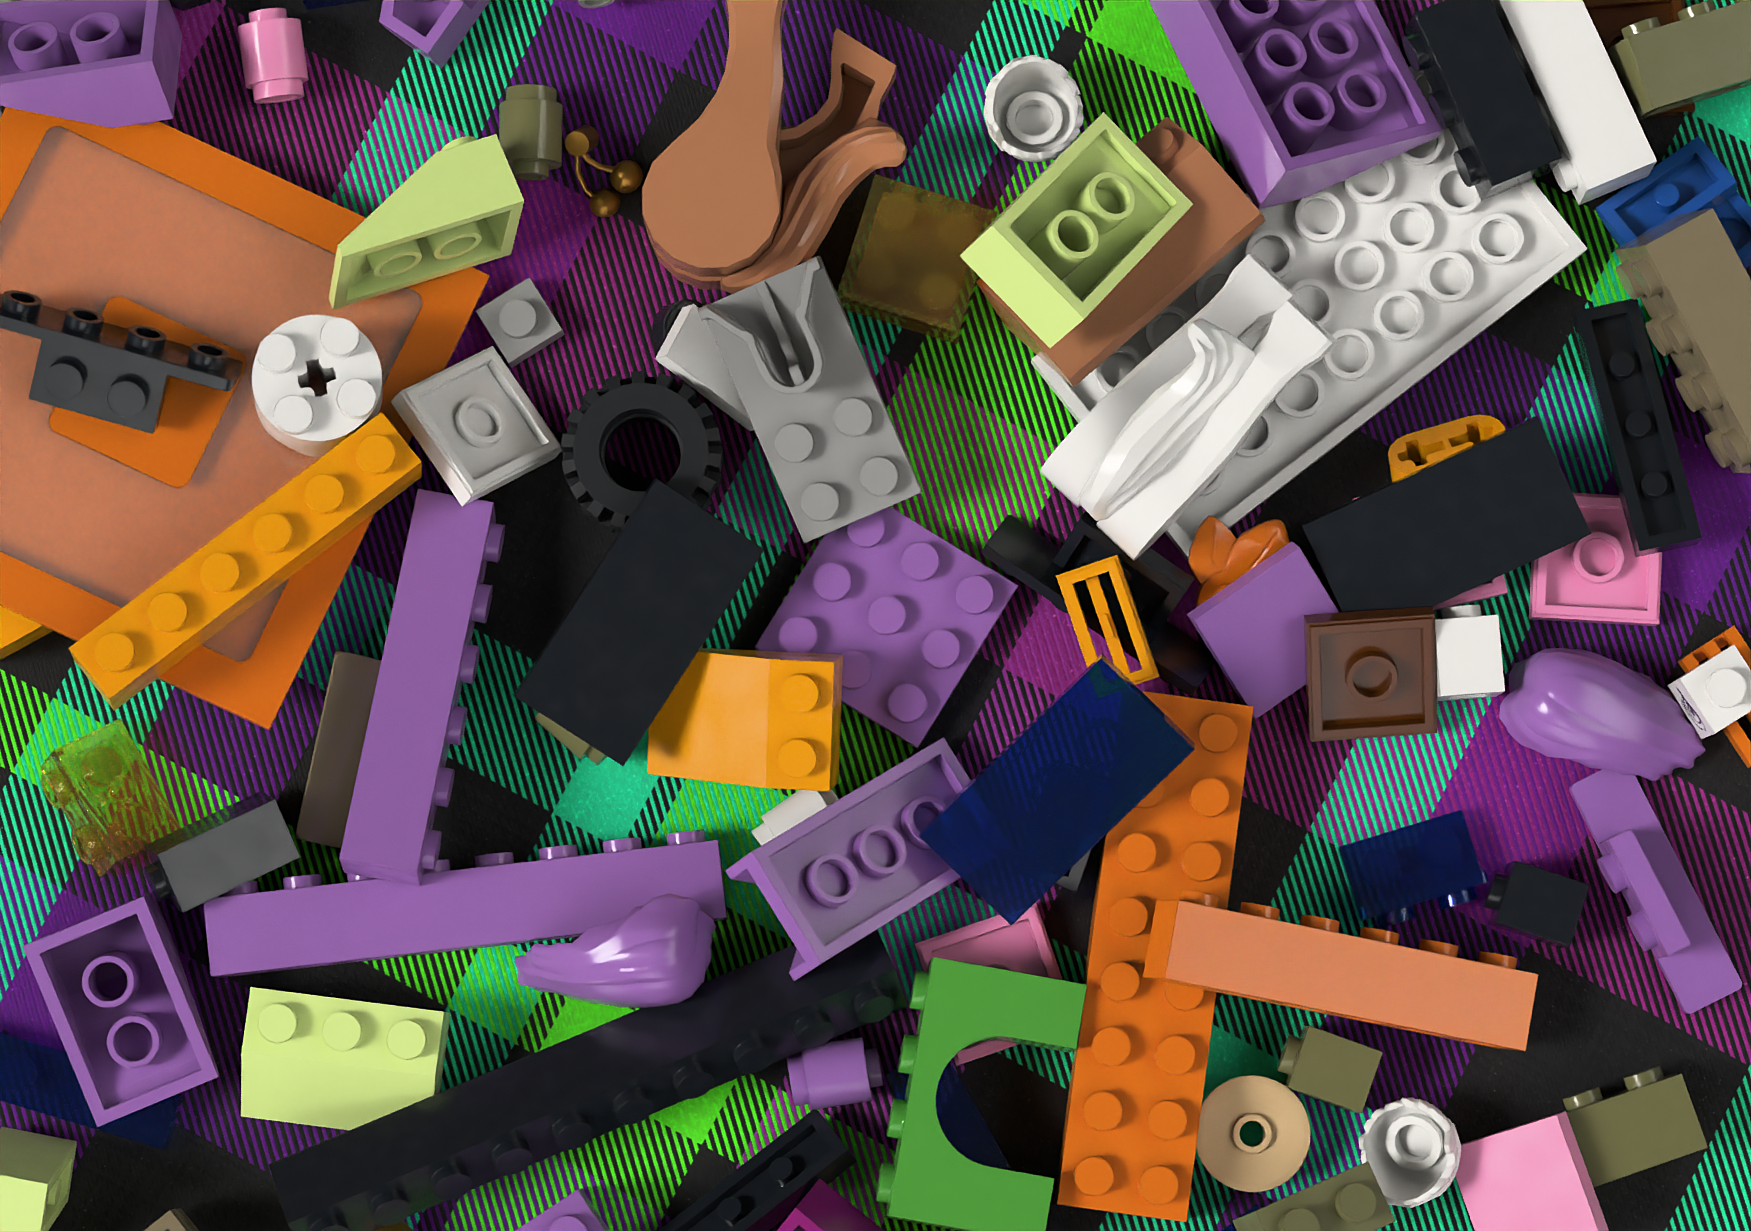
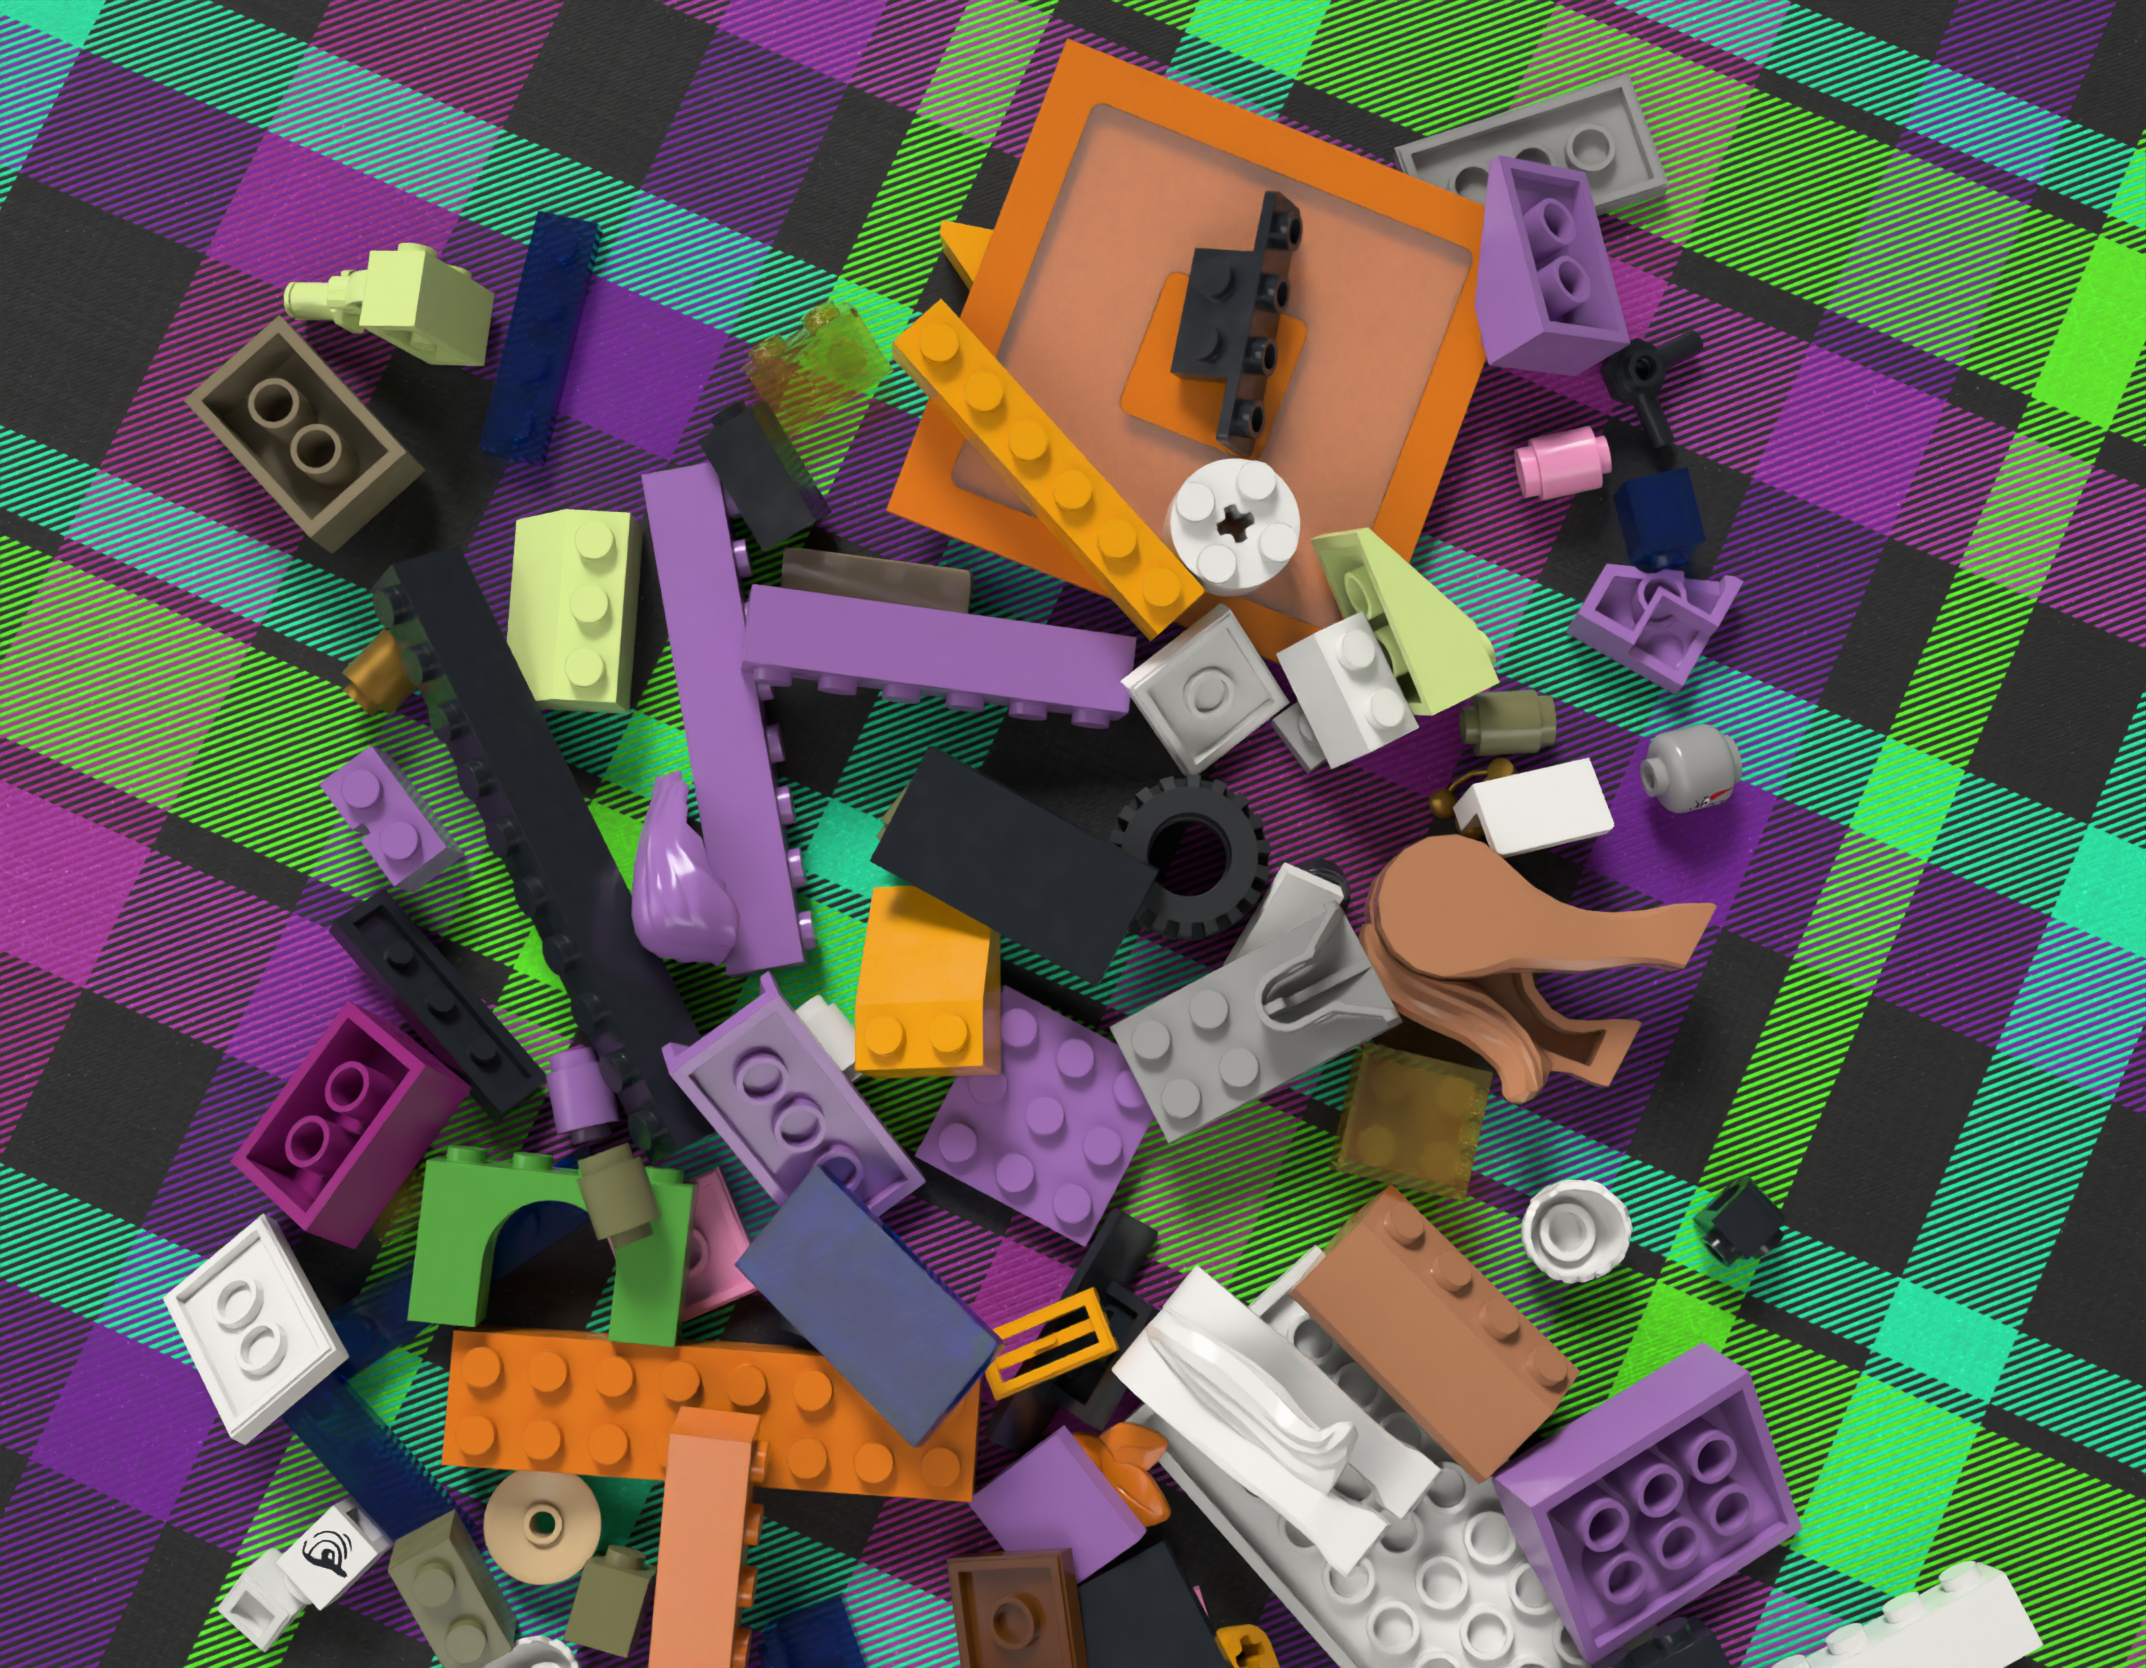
camera: 90 degrees right, 0 degrees up
(123, 1008) = (607, 393): medium lavender slope -> none
(488, 284) = (1347, 690): none -> white brick
(620, 110) = (1537, 808): none -> white panel
(935, 1023) = (618, 1195): none -> olive brick
(1076, 231) = (1448, 1288): yellowish green slope -> none

